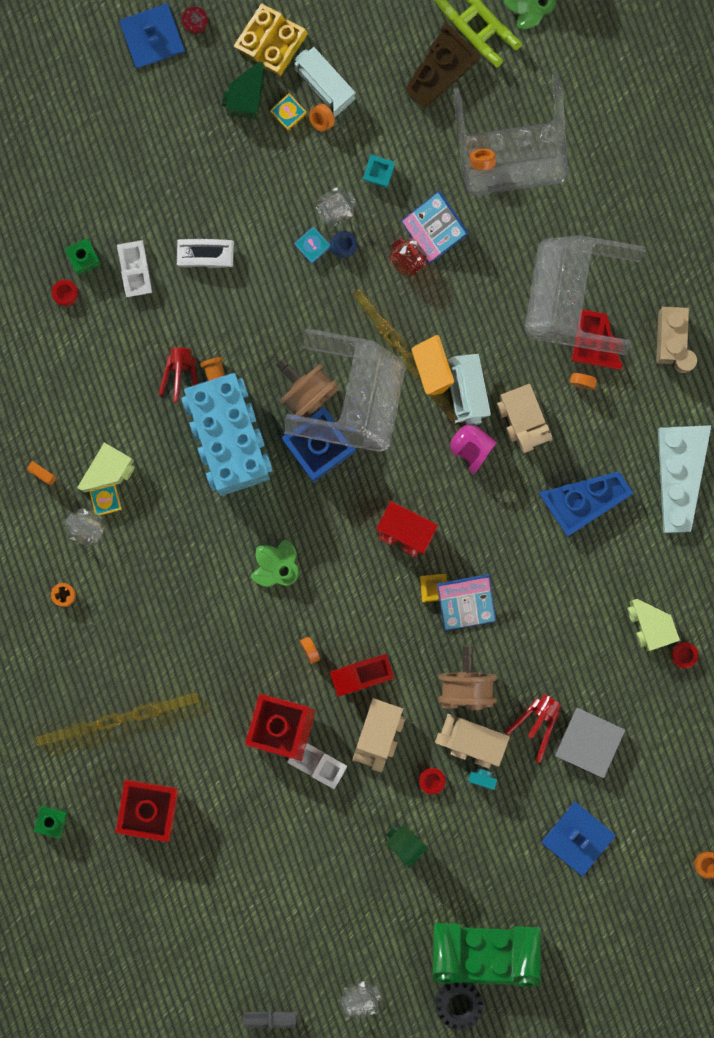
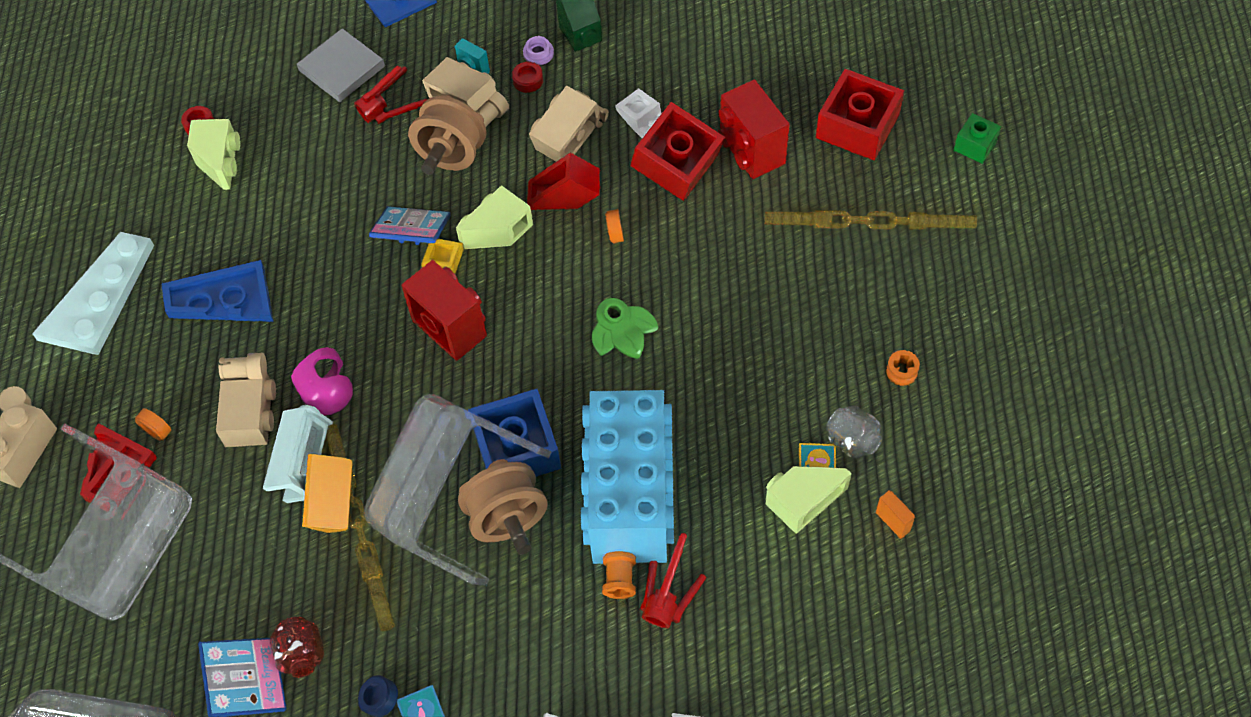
camera: 160 degrees left, 25 degrees down
(226, 764) = (753, 129): none -> red brick
(401, 627) = (495, 222): none -> yellowish green slope
(432, 817) = (538, 50): none -> lavender plate

